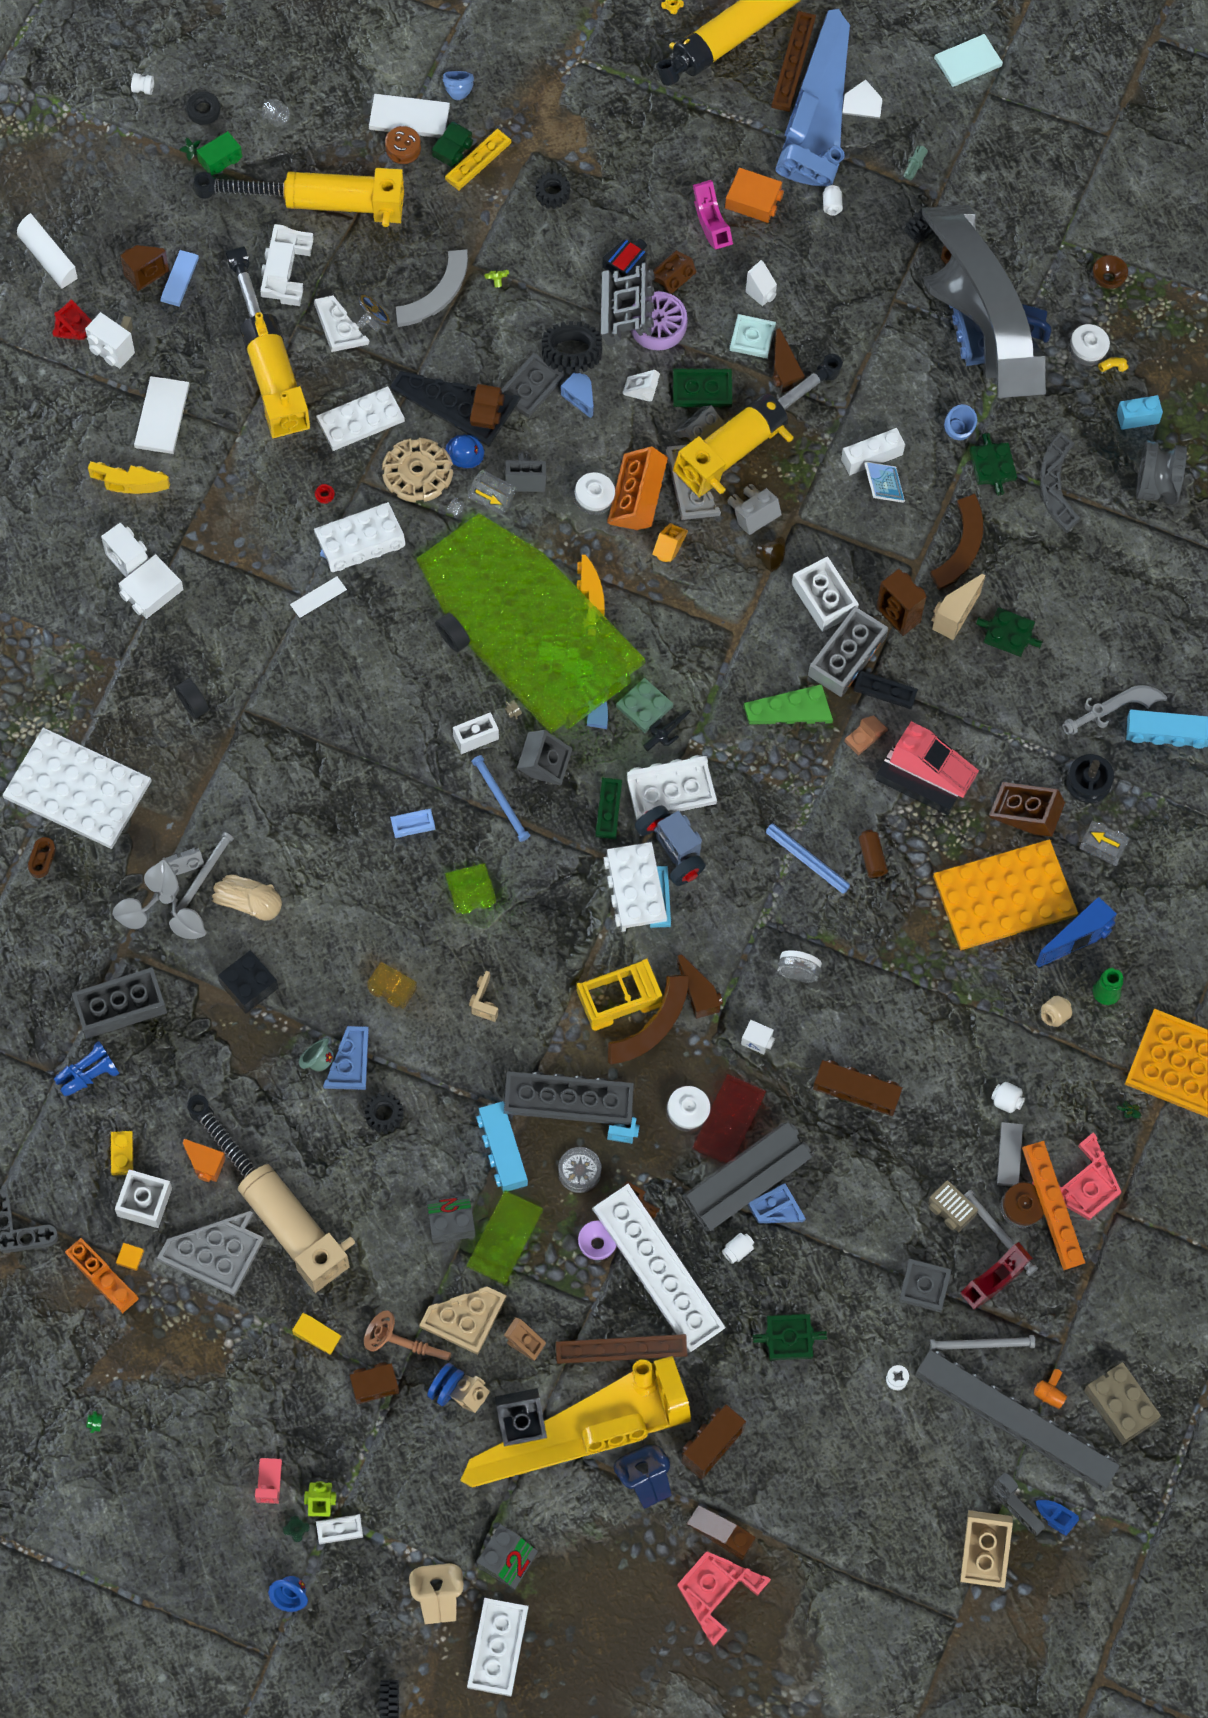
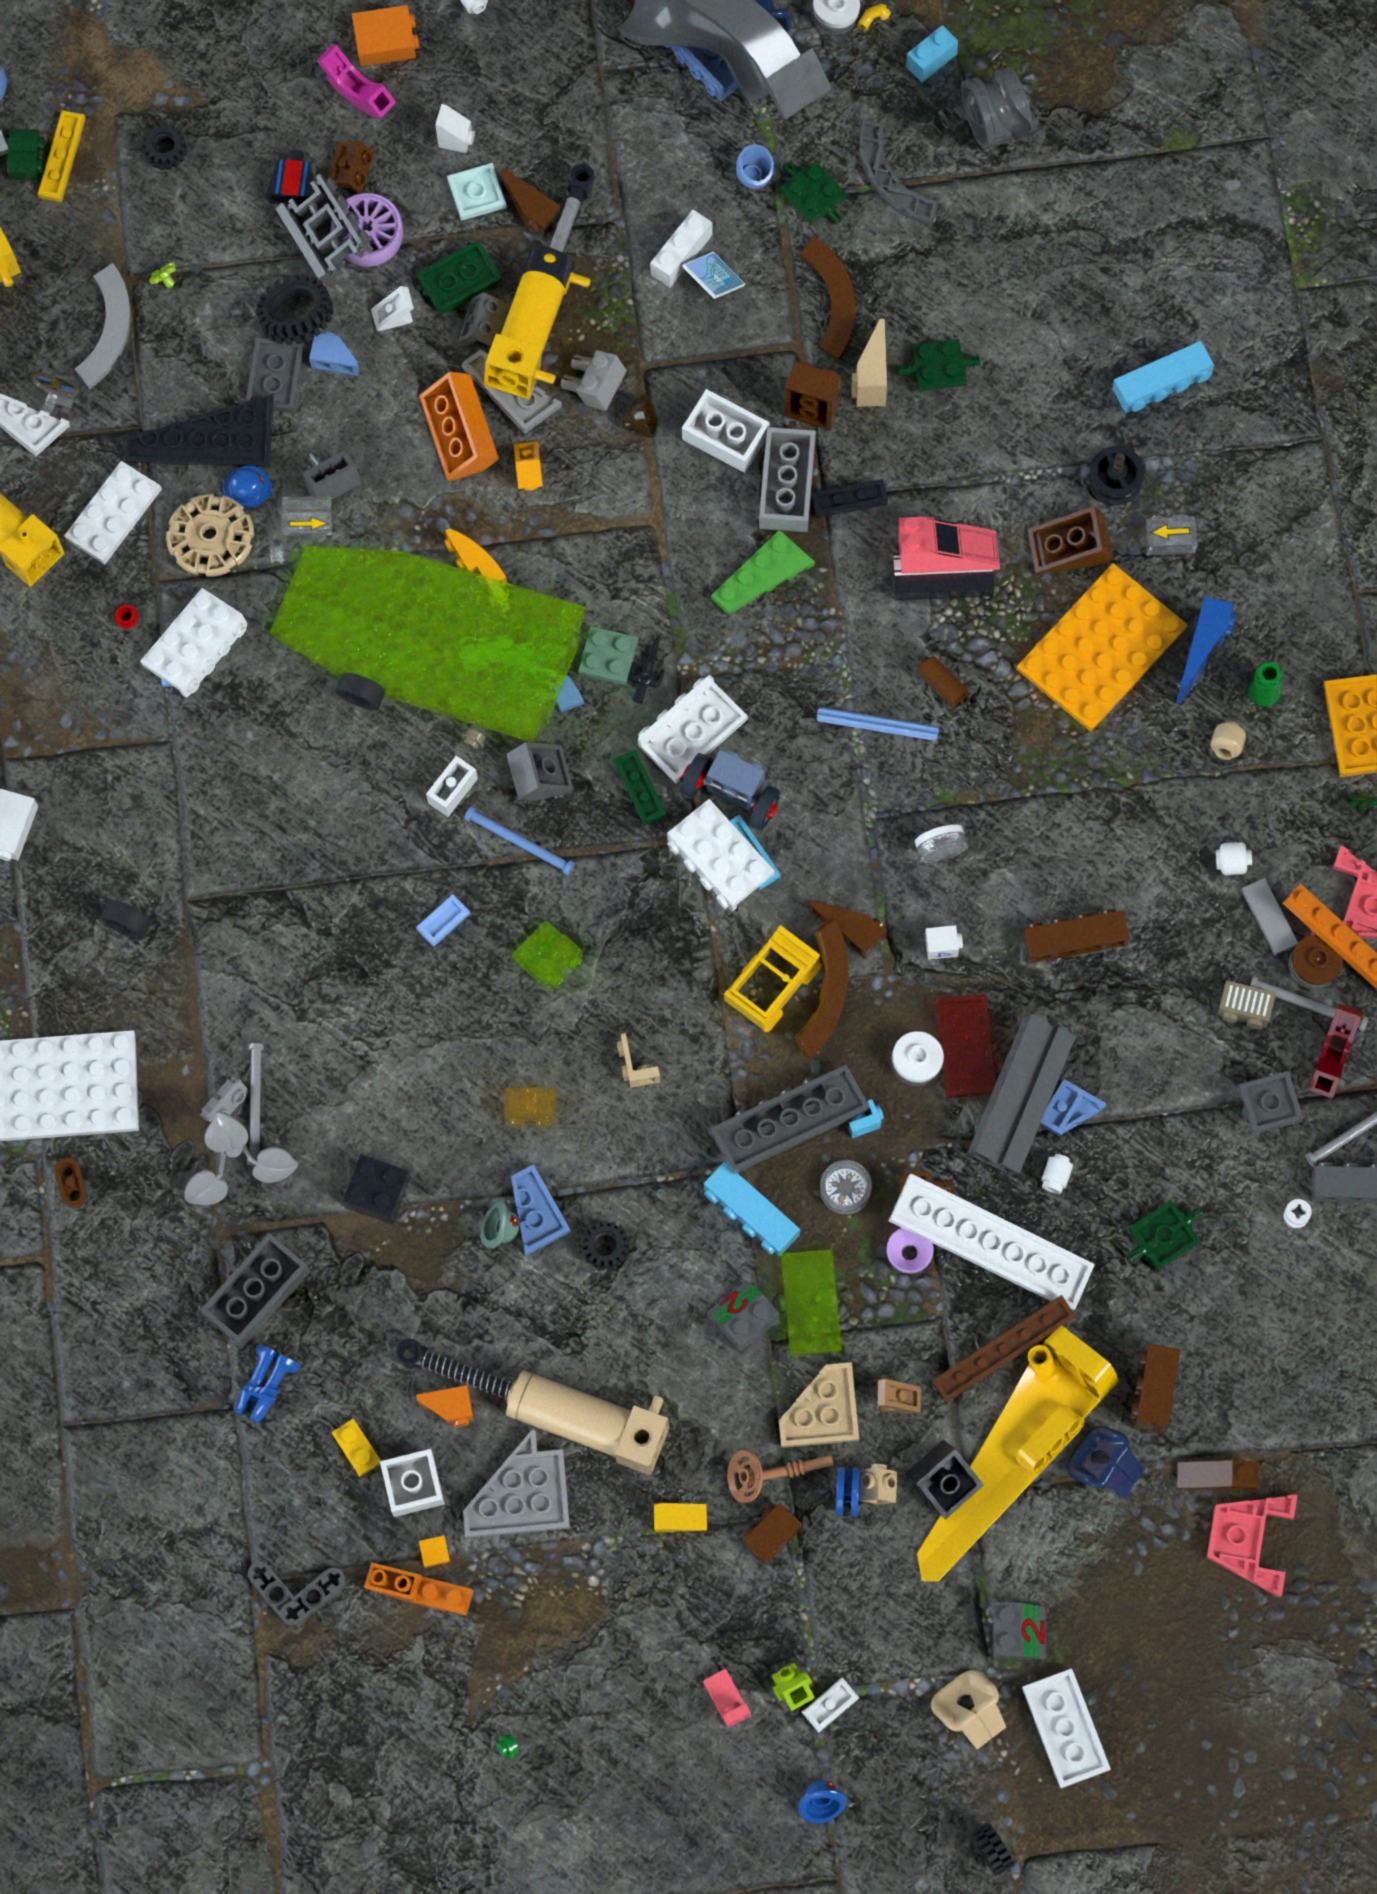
camera: 25 degrees left, 5 degrees up
(248, 897) = (318, 1099): tan hair -> none
(296, 1535) = (790, 1725): clear green plate -> none
(318, 597) = (189, 732): white sticker -> none
(486, 406) = (244, 425): reddish brown brick -> none
(594, 493) = (415, 456): white piece -> none
(865, 735) = (857, 558): nougat slope -> none
(1140, 694) = (1111, 356): light grey sword -> none

